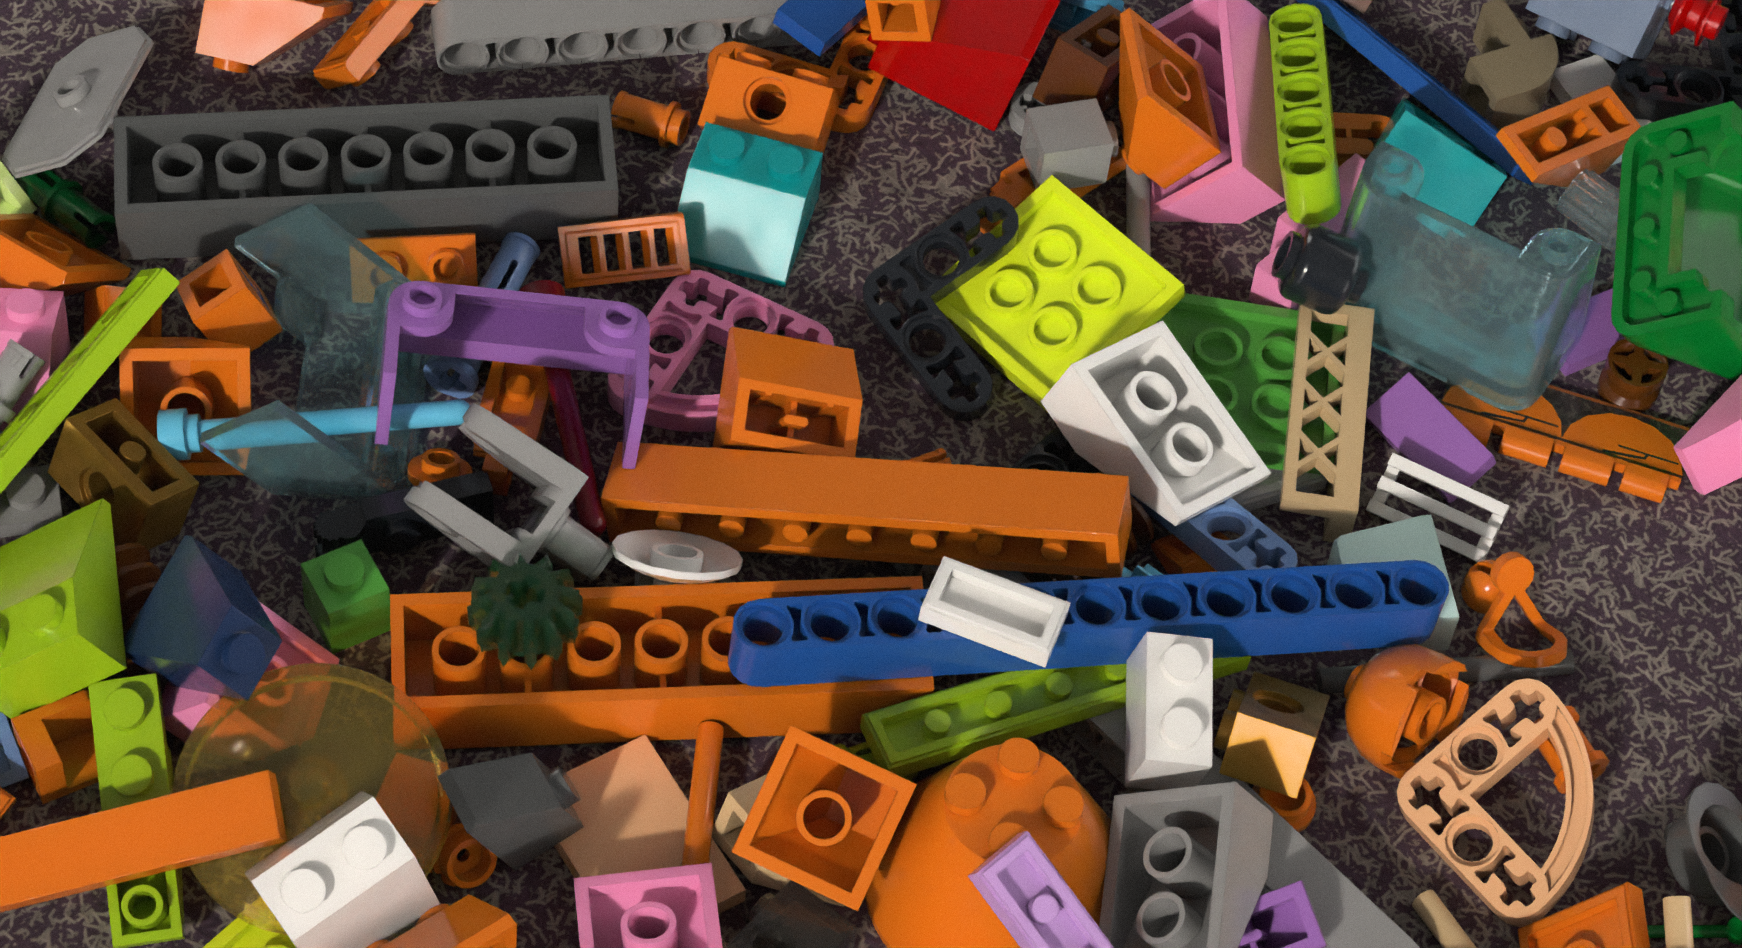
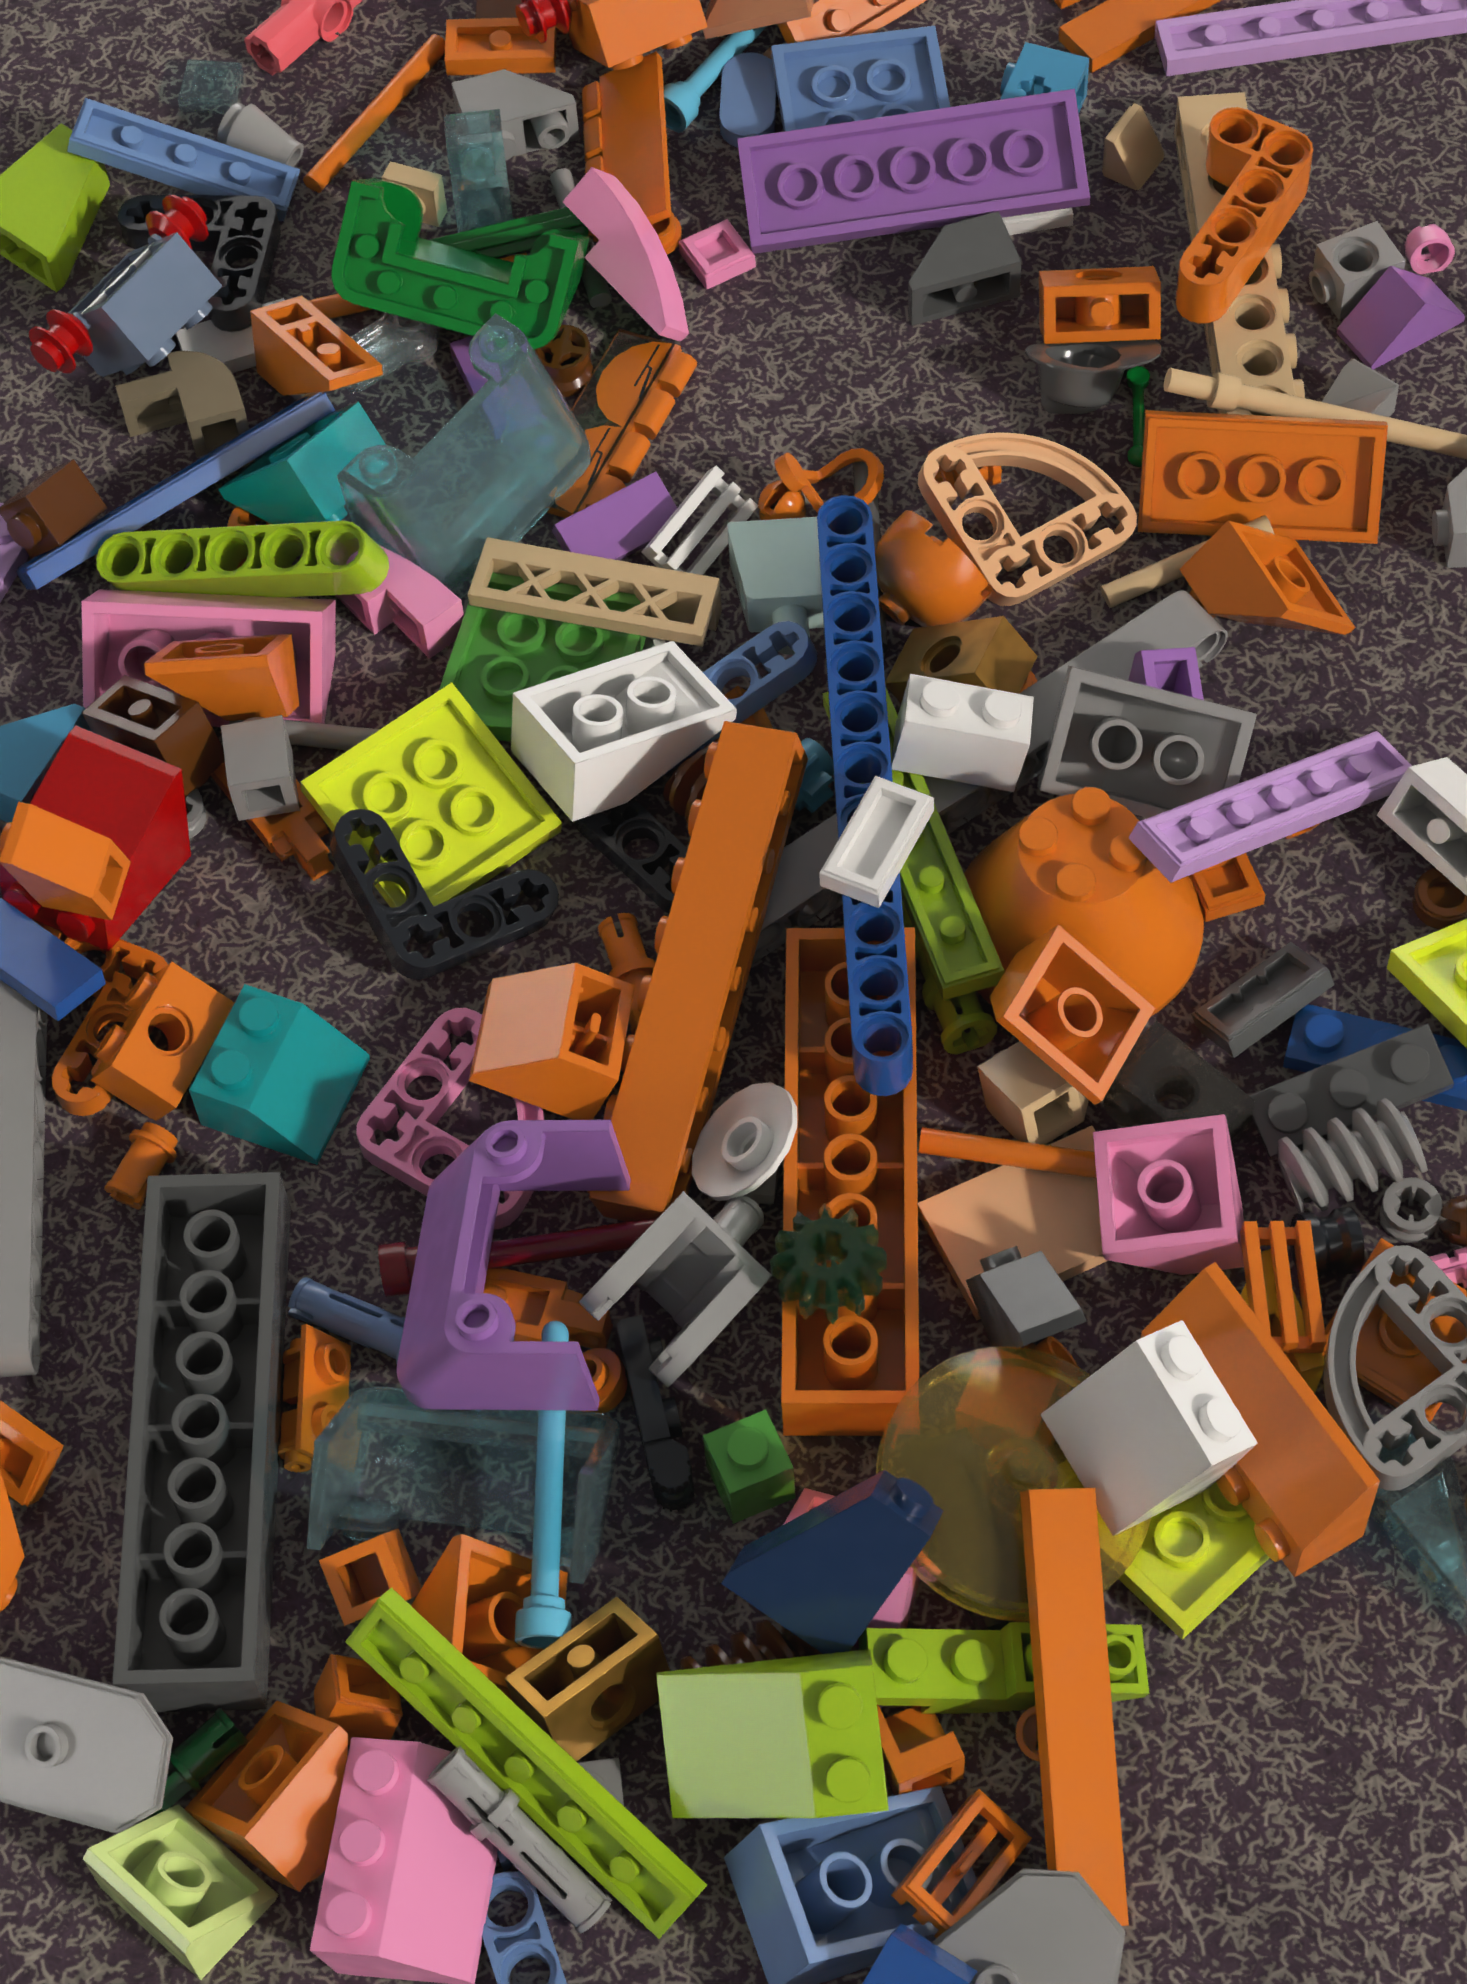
camera: 75 degrees left, 5 degrees up
(676, 246) = (340, 1152): orange slope -> none
(1320, 269) = (455, 562): black head -> none

